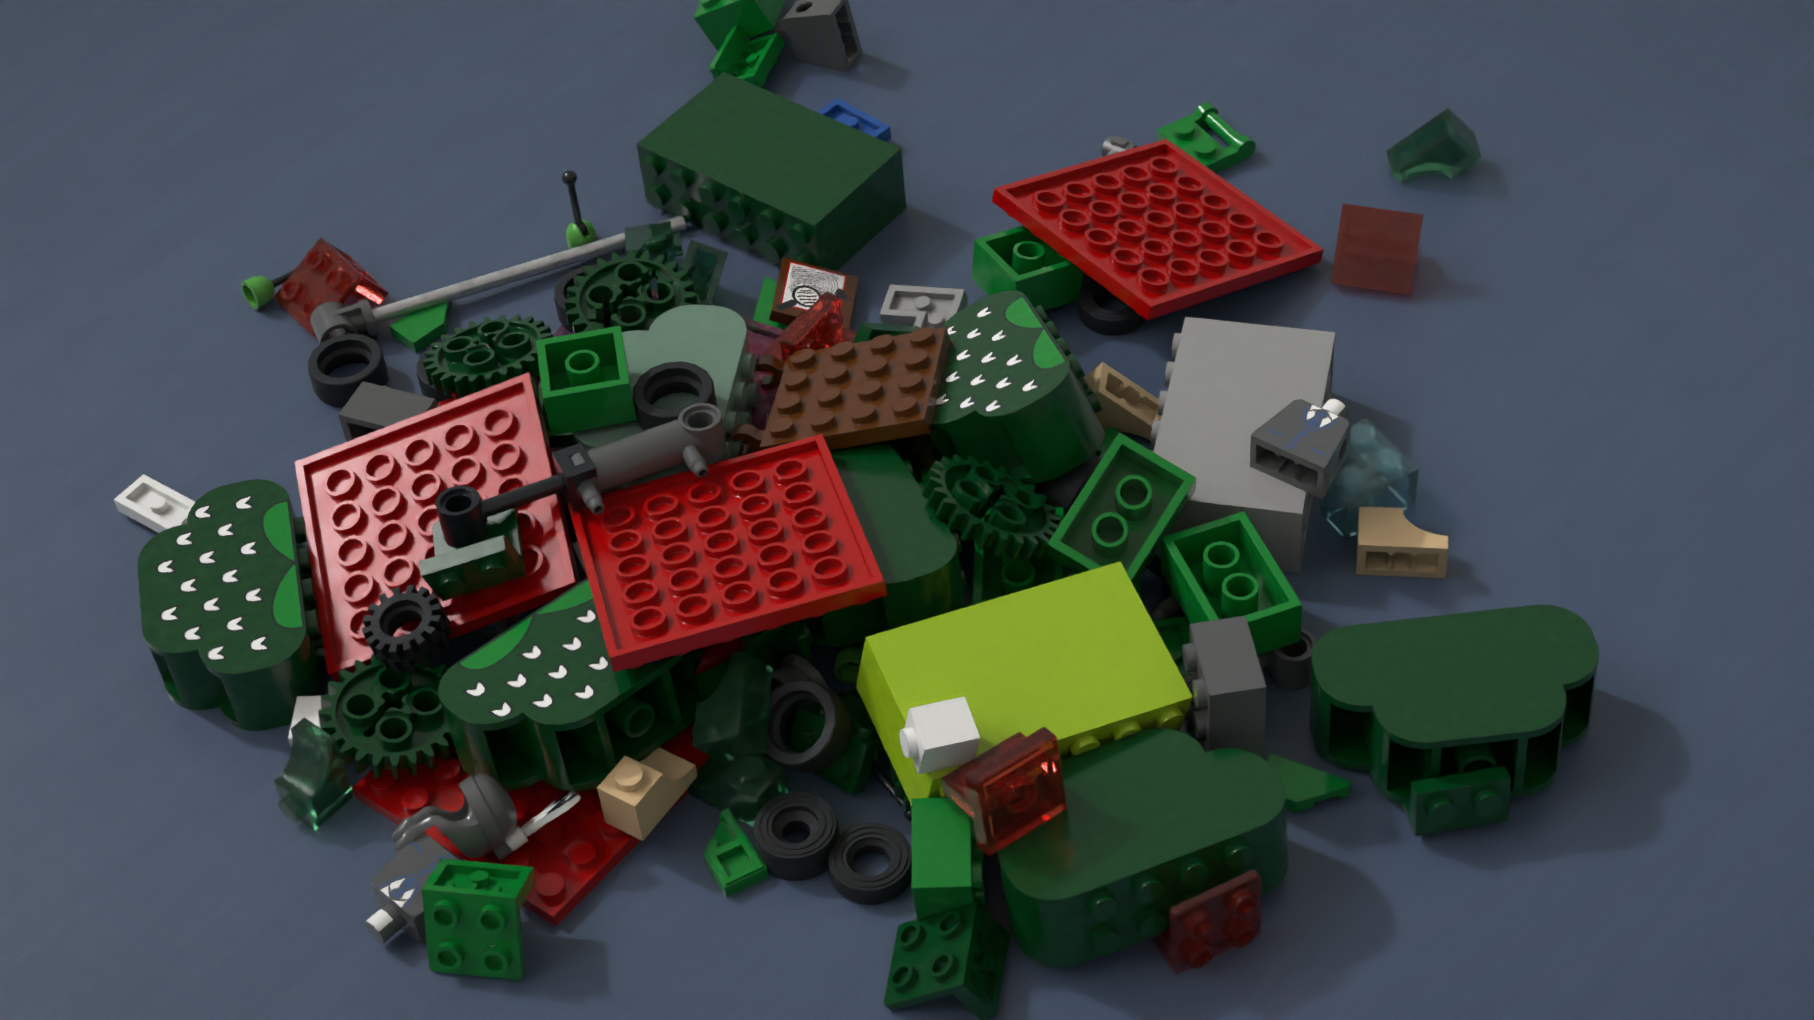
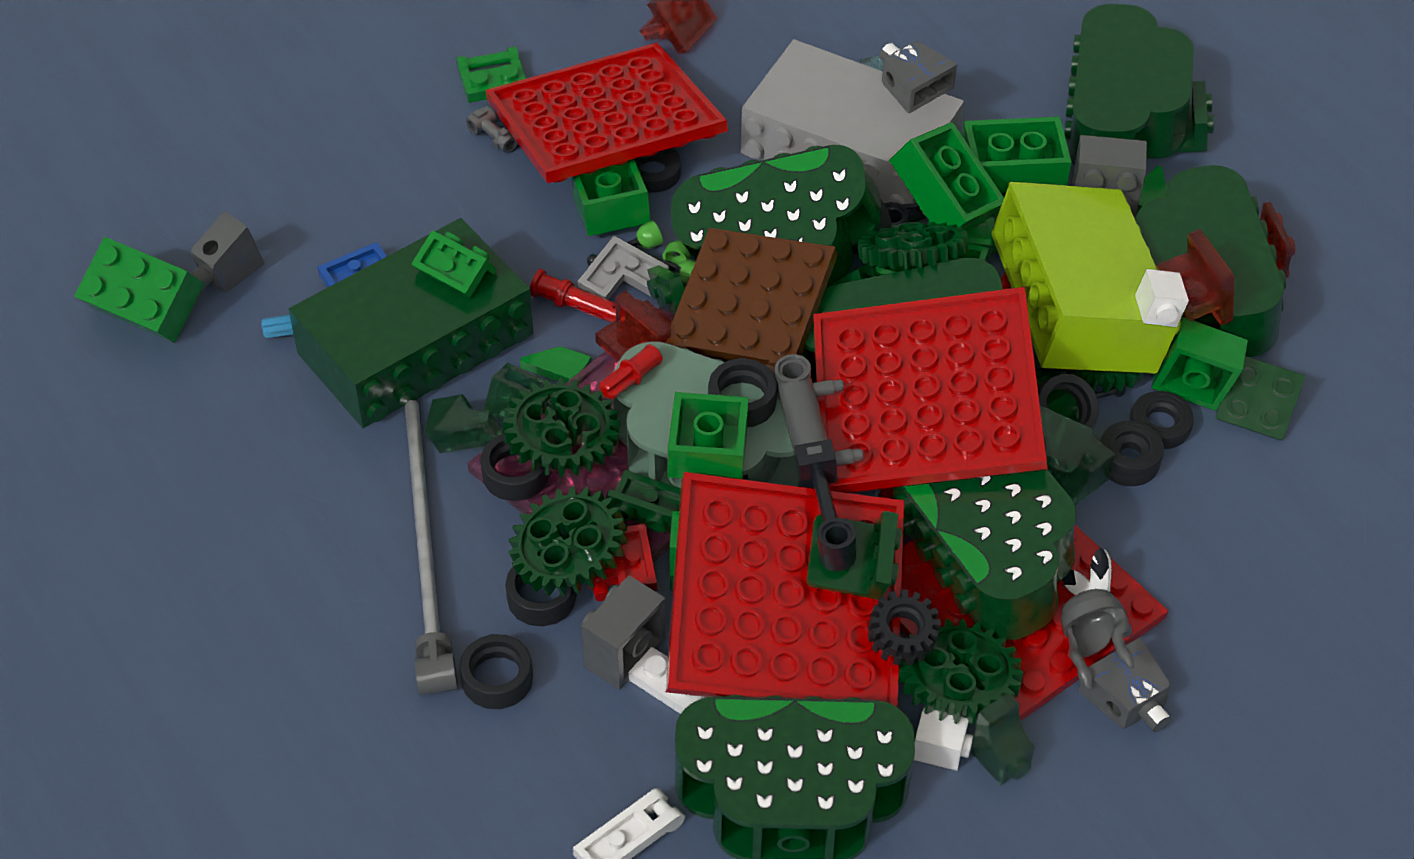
camera: 80 degrees left, 5 degrees up
(260, 290) = (344, 732): bright green hinge -> none
(324, 277) = (373, 678): clear red bracket -> none
(422, 326) = (455, 612): green tile -> none
(476, 918) = (1178, 634): green bracket -> none
(580, 227) = (391, 475): hinge -> none
(643, 791) = (1095, 524): tan arch -> none
(681, 310) = (630, 372): none -> red axle
(732, 857) = (1130, 498): green tile -> none
(747, 58) = (227, 315): green bracket -> none
(803, 284) = (563, 333): tile -> none
(816, 152) = (452, 263): none -> green bracket
(874, 283) = (565, 294): none -> red pin
(1396, 547) = (970, 84): tan arch -> none

